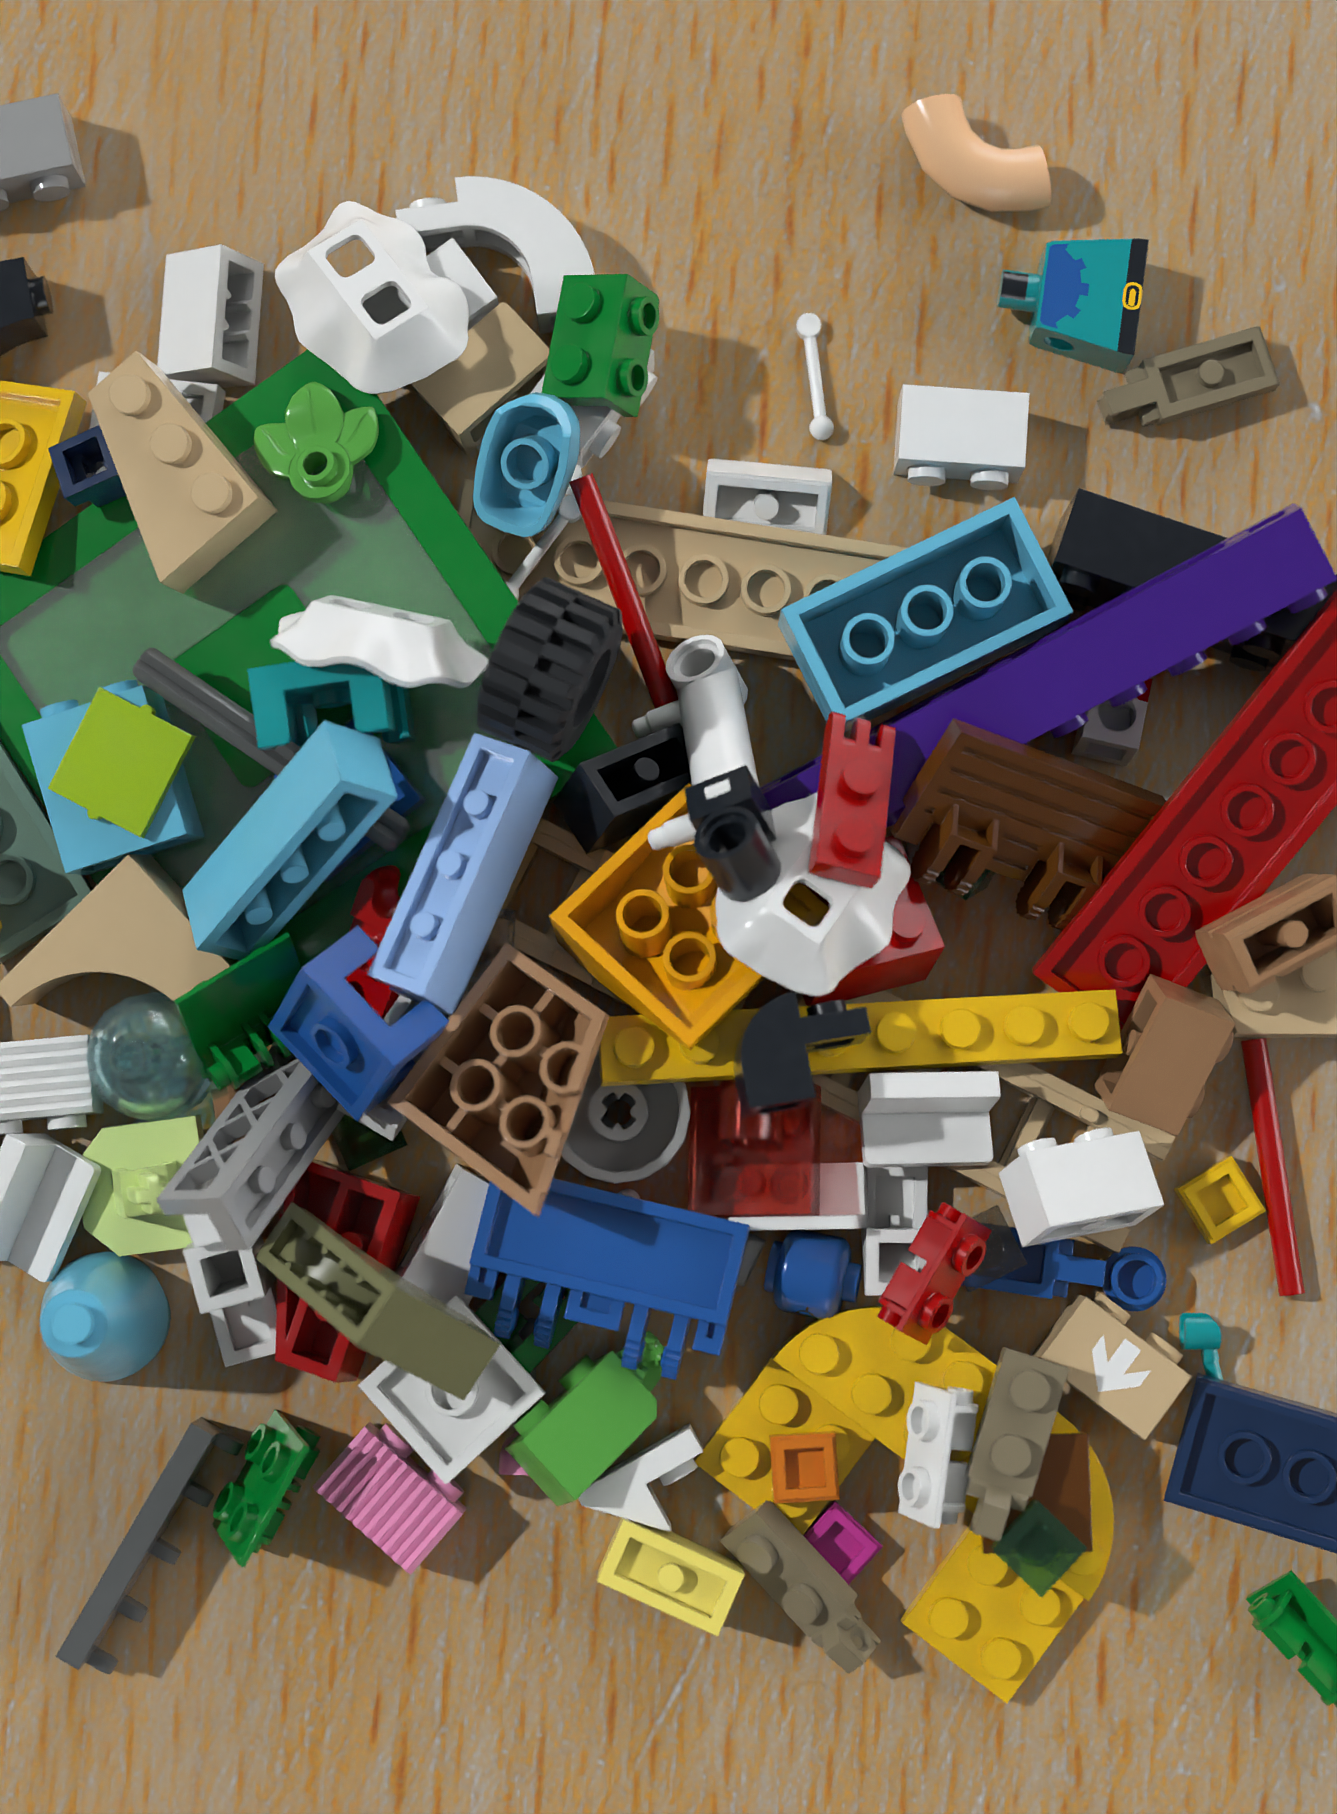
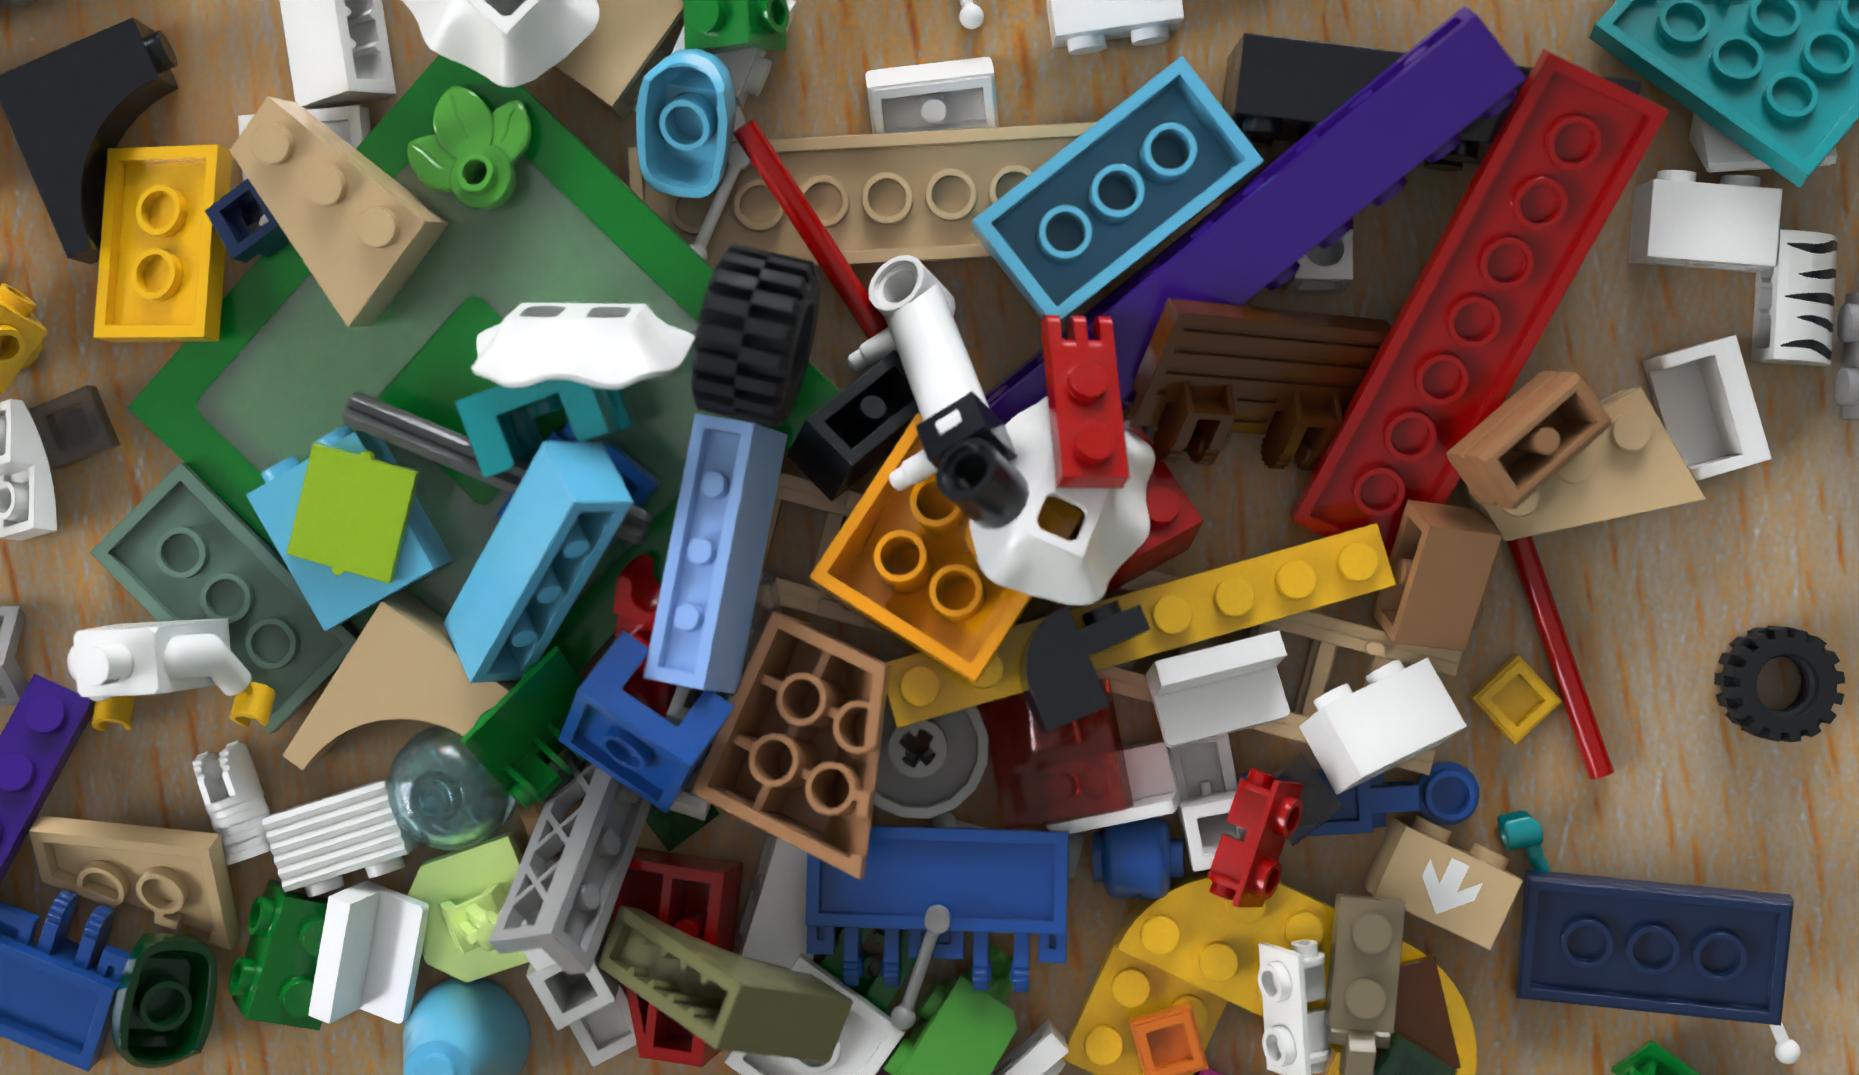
camera: 10 degrees left, 5 degrees up
(599, 1285) = (936, 922): none -> light grey hinge

